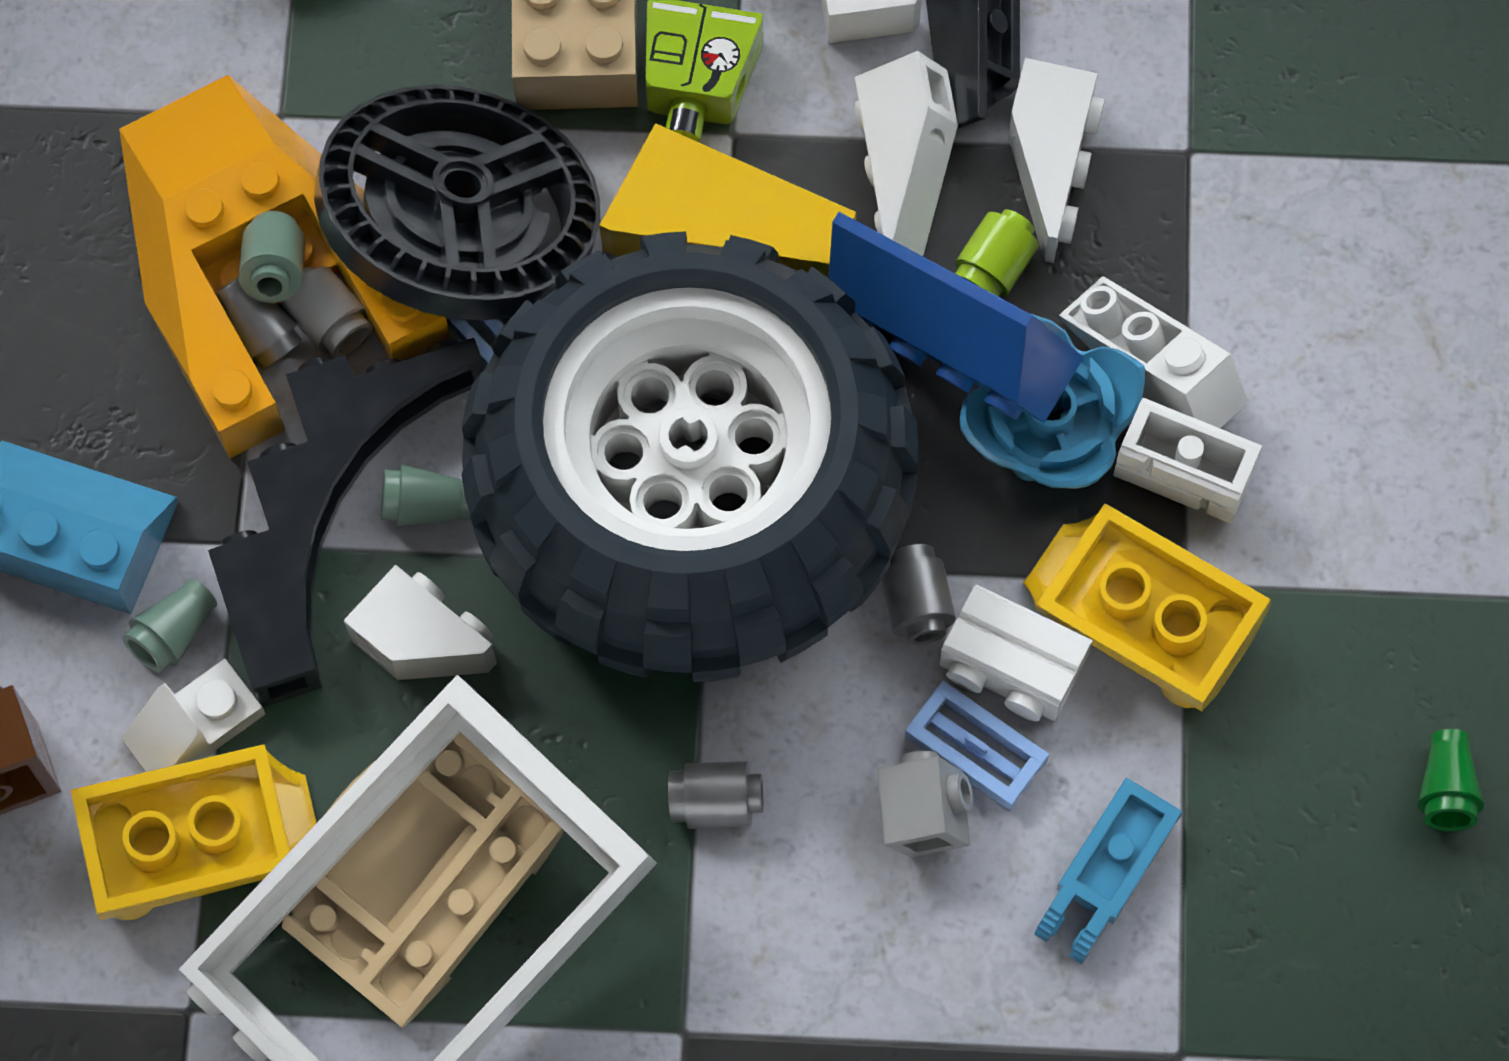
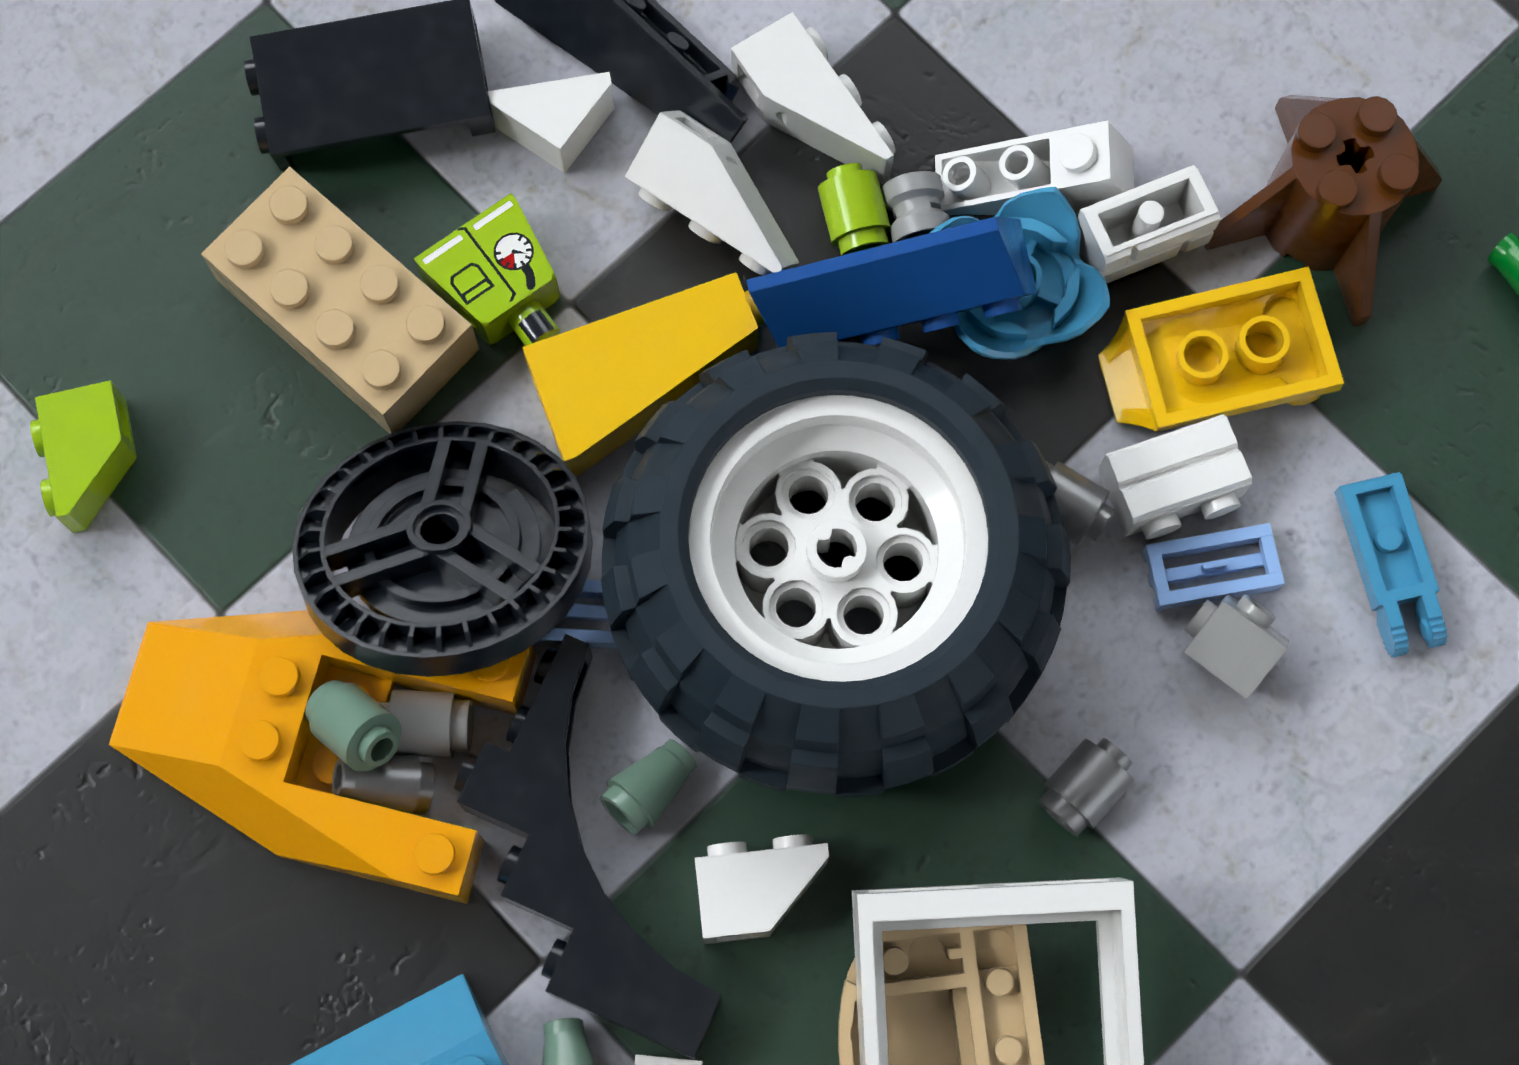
camera: 50 degrees left, 5 degrees up
(1044, 288) = (914, 203): none -> light grey wheel
(1353, 565) = (1335, 189): none -> reddish brown brick

